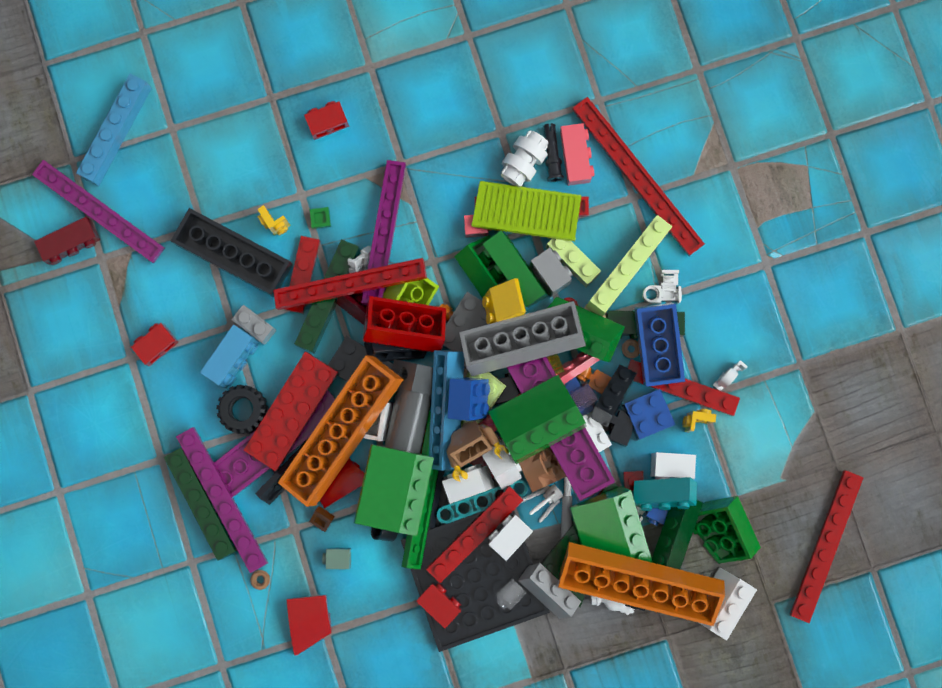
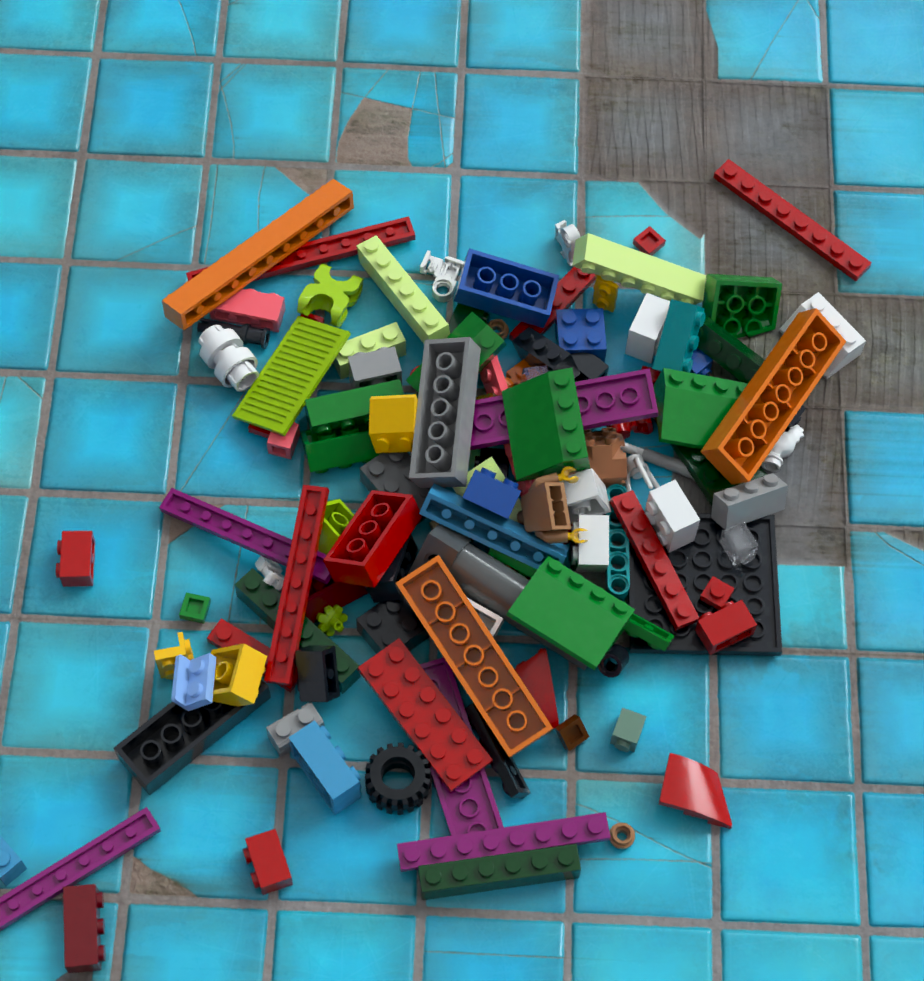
camera: 75 degrees left, 20 degrees down
(251, 241) = (193, 681): none -> light blue bracket
(265, 267) = (237, 674): none -> yellow slope
(292, 324) = (317, 673): none -> black brick
(345, 318) = (331, 620): none -> lime plant
(466, 589) = (716, 593): none -> red plate
(608, 212) = (330, 295): none -> lime piece
(620, 144) = (257, 254): none -> orange brick
(714, 442) = (637, 270): none -> yellowish green brick
(757, 439) = (649, 241): none -> red plate

